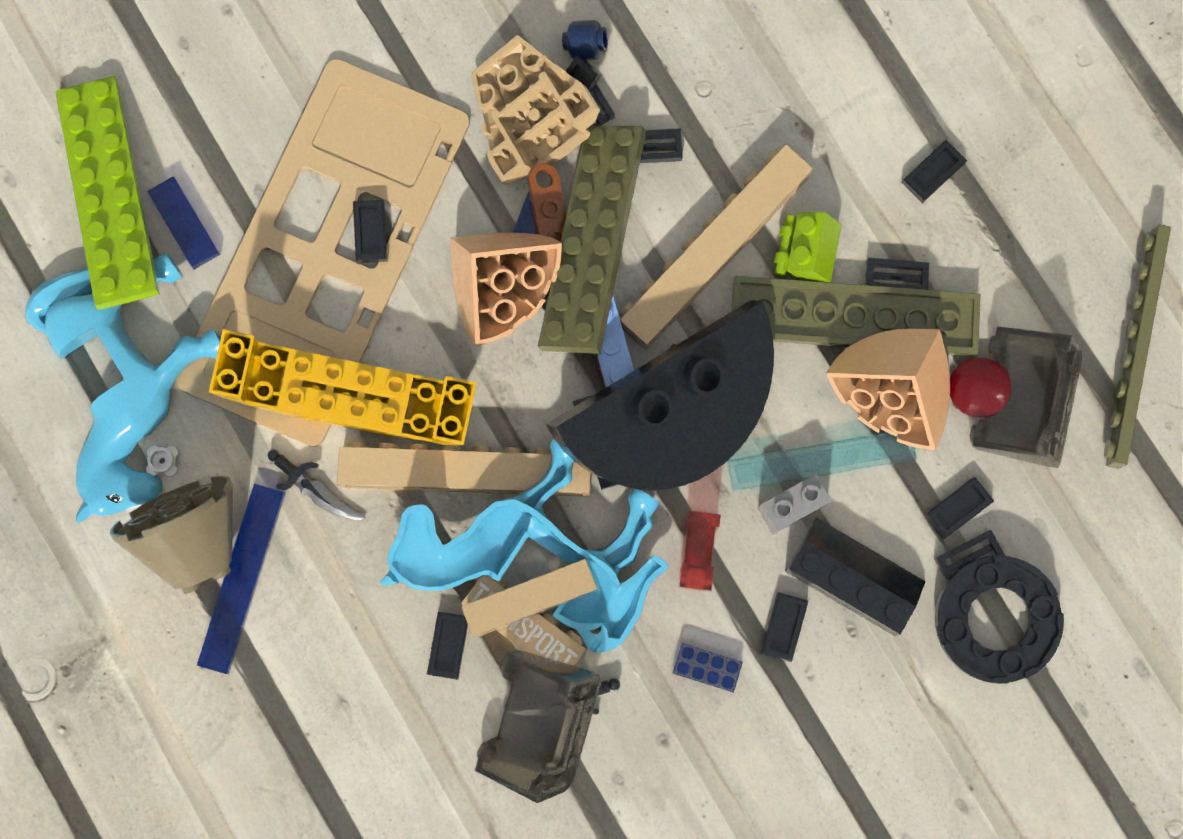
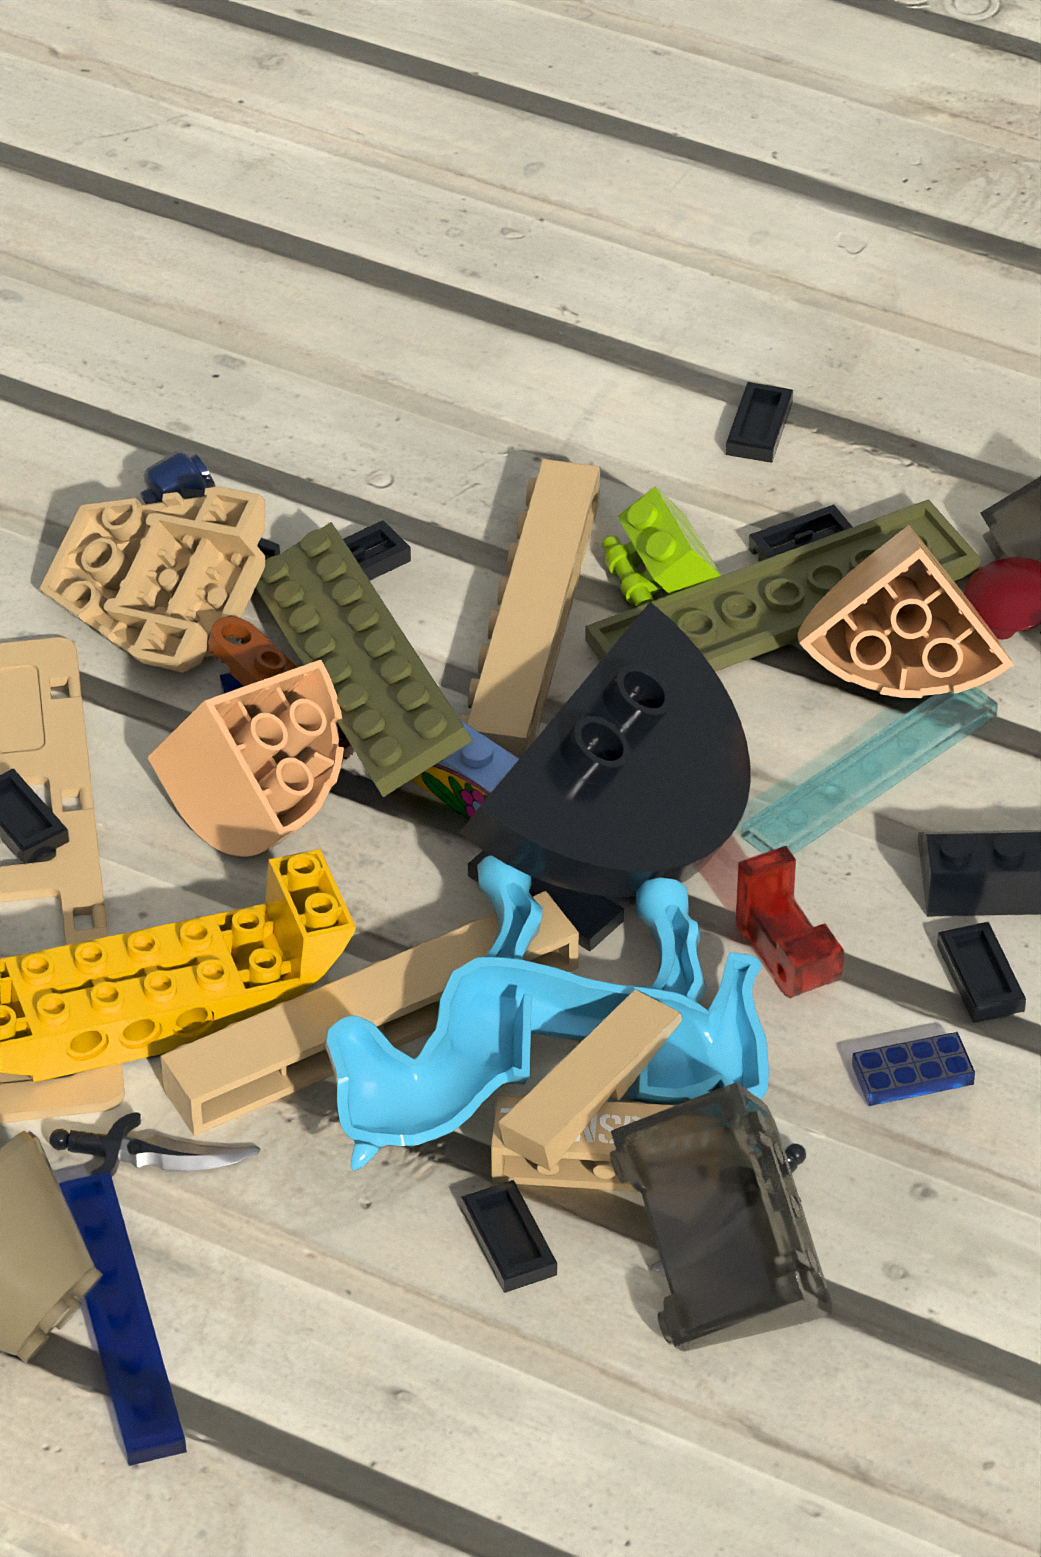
camera: 30 degrees left, 35 degrees down
(794, 504) = (876, 821): light grey brick -> none

